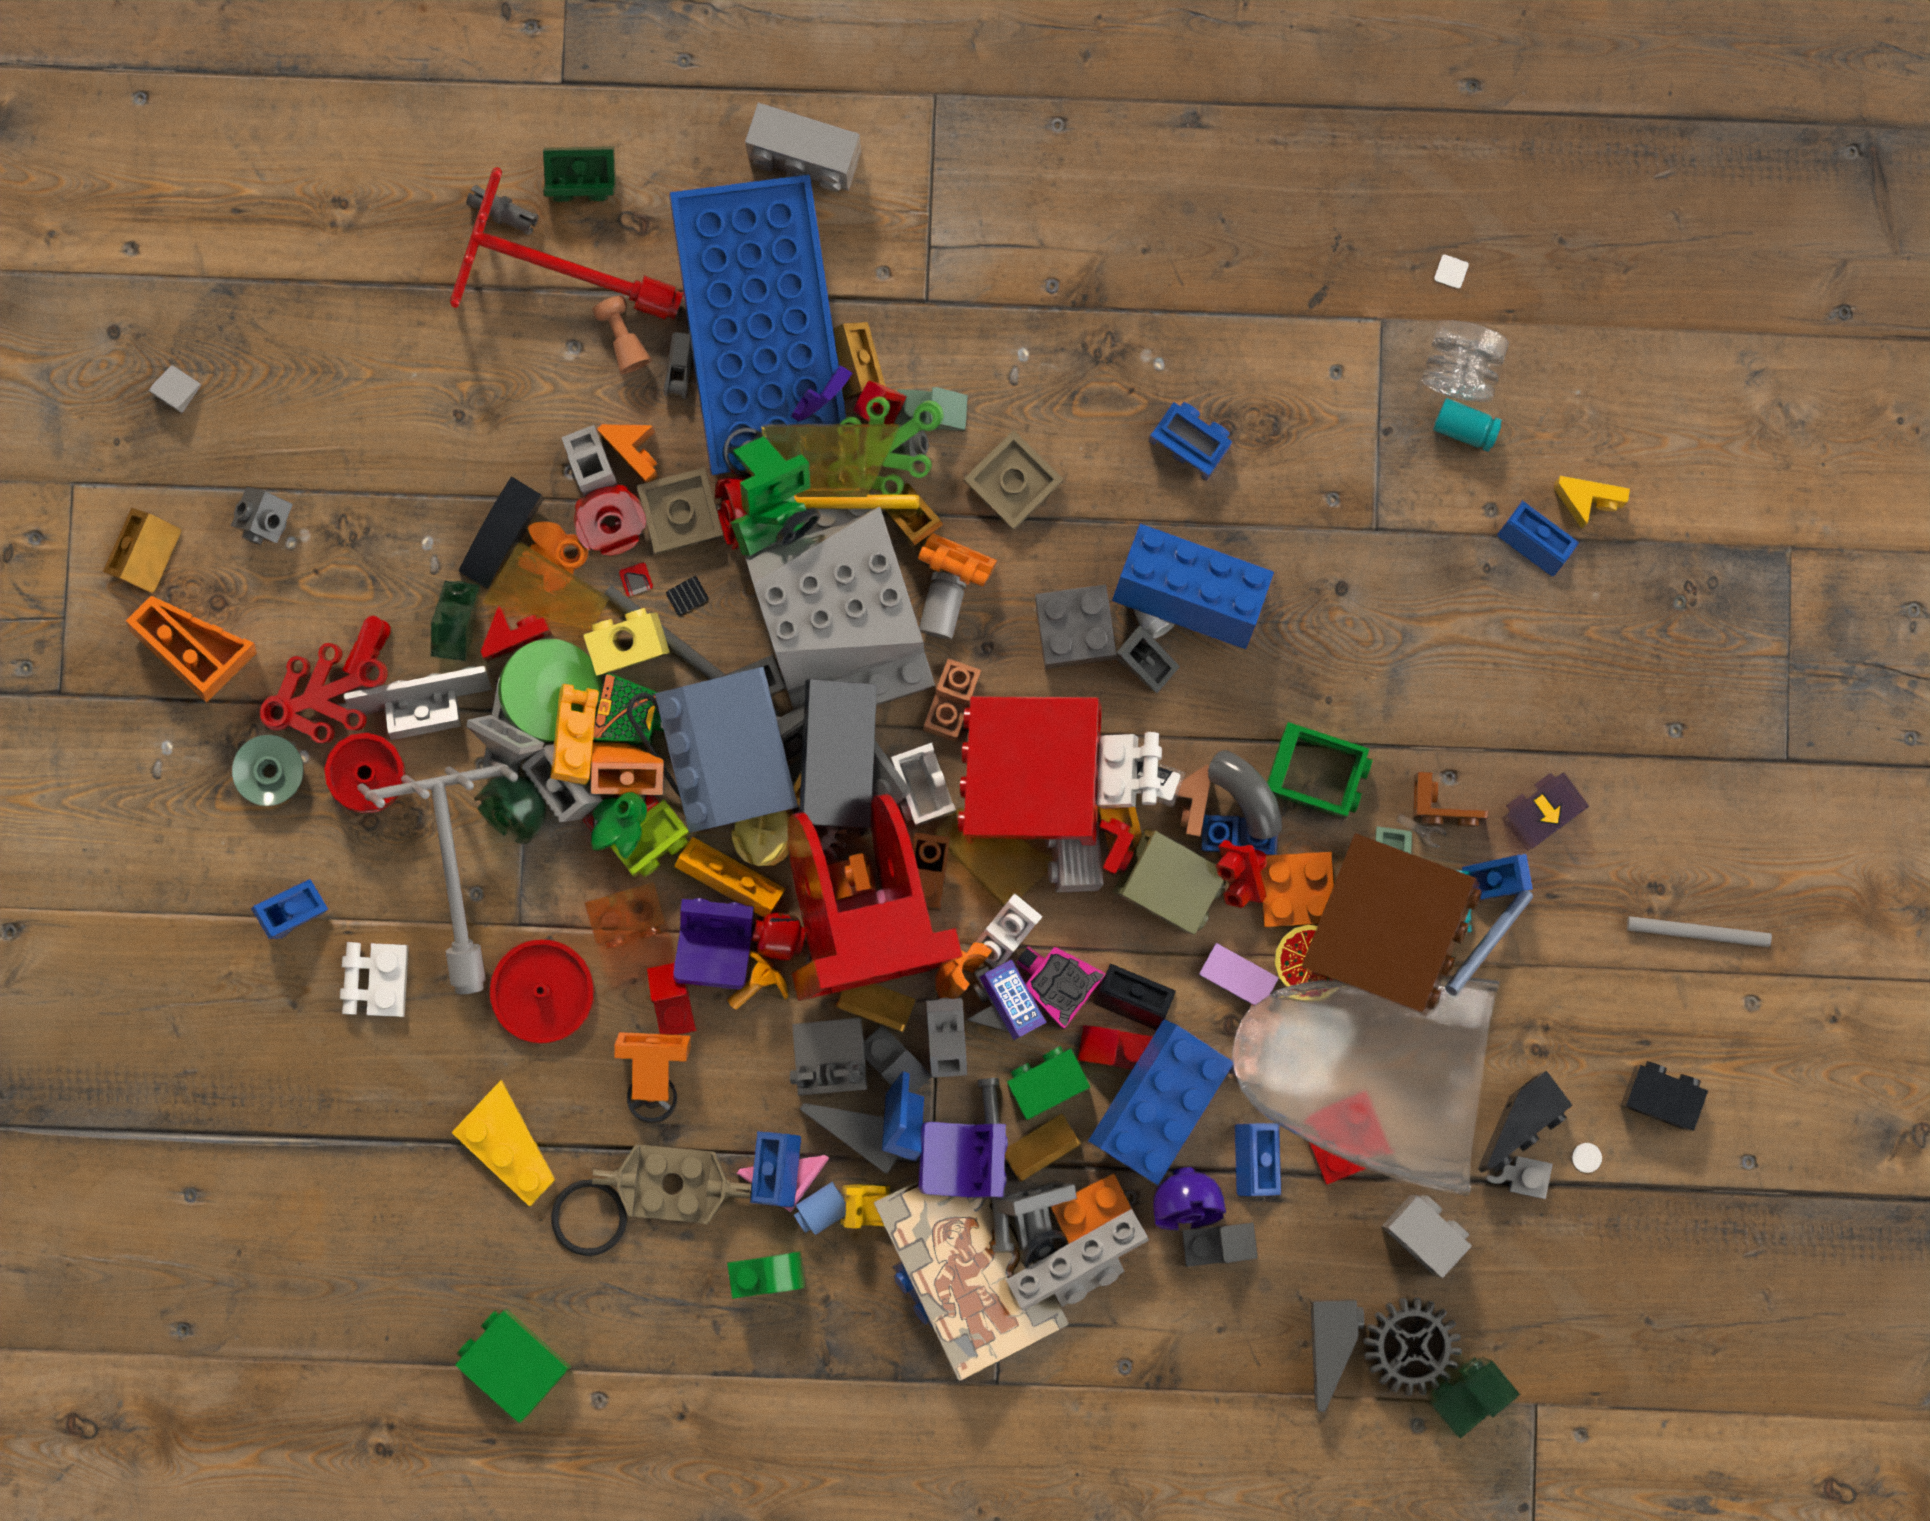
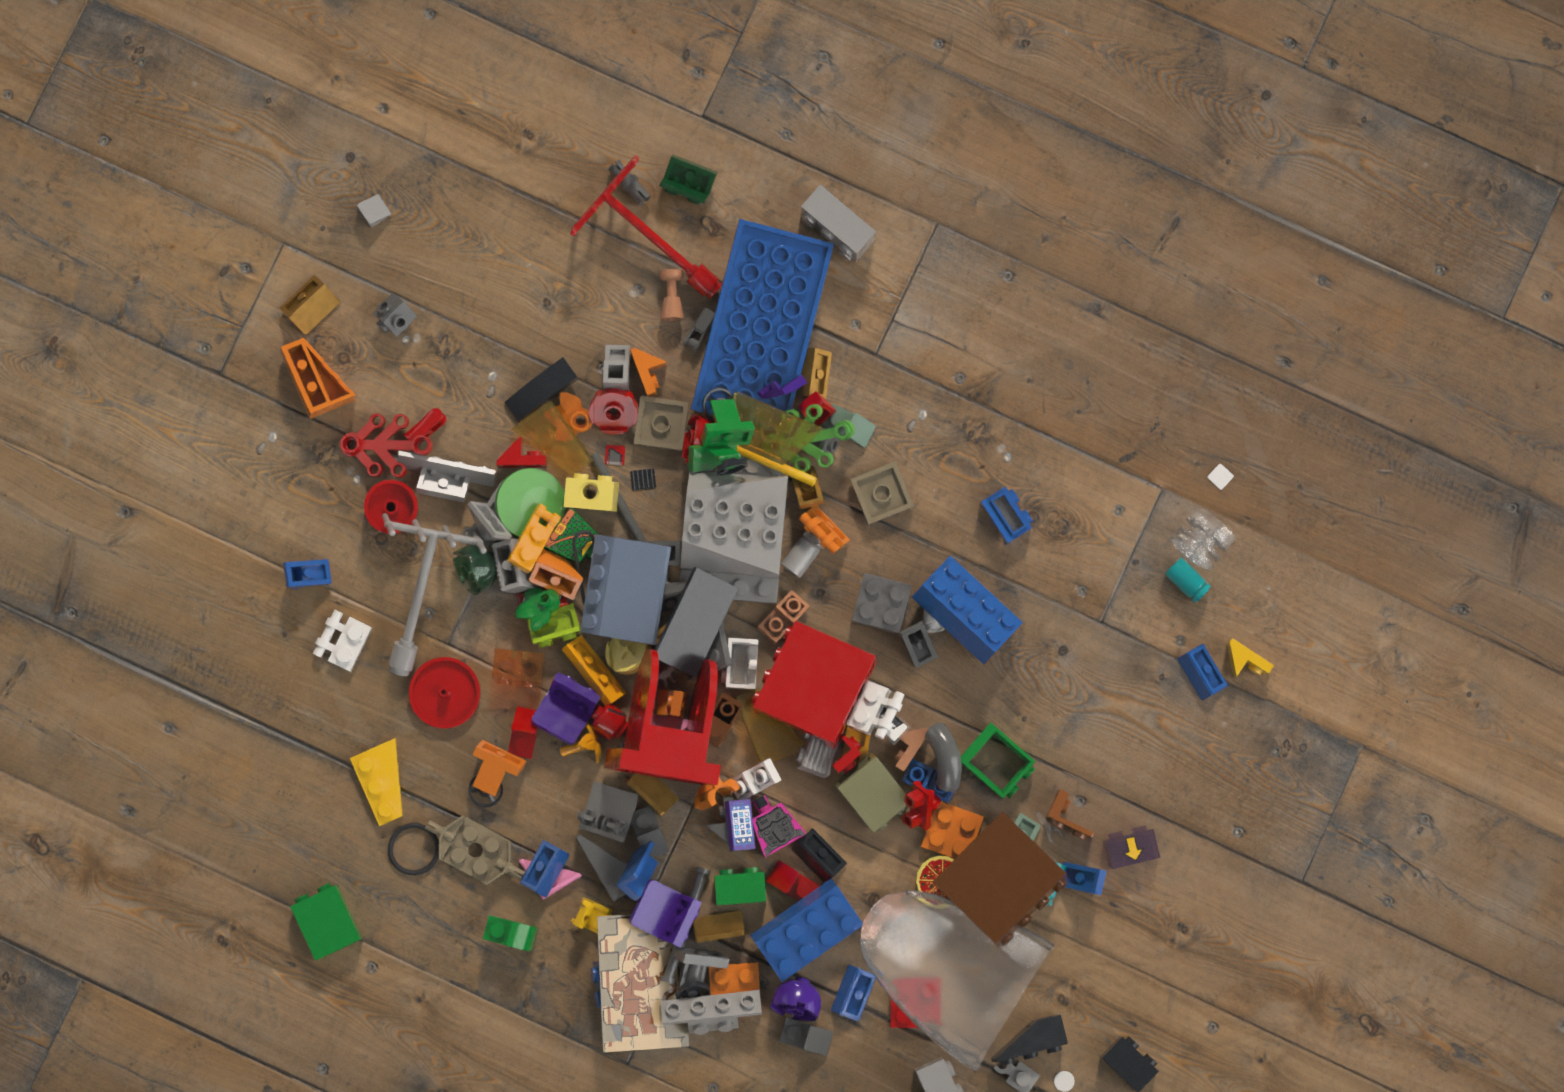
camera: 20 degrees right, 0 degrees up
(250, 766) = (321, 470): sand green dish -> none
(454, 620) = (488, 433): clear green slope -> none
(821, 1209) = (562, 906): medium blue brick -> none
(946, 1037) = (688, 831): light grey brick -> none
(1238, 975) = (890, 870): lavender tile -> none
(1488, 942) = (1058, 917): sand blue bar -> none
(1699, 931) = (1197, 967): light grey bar -> none

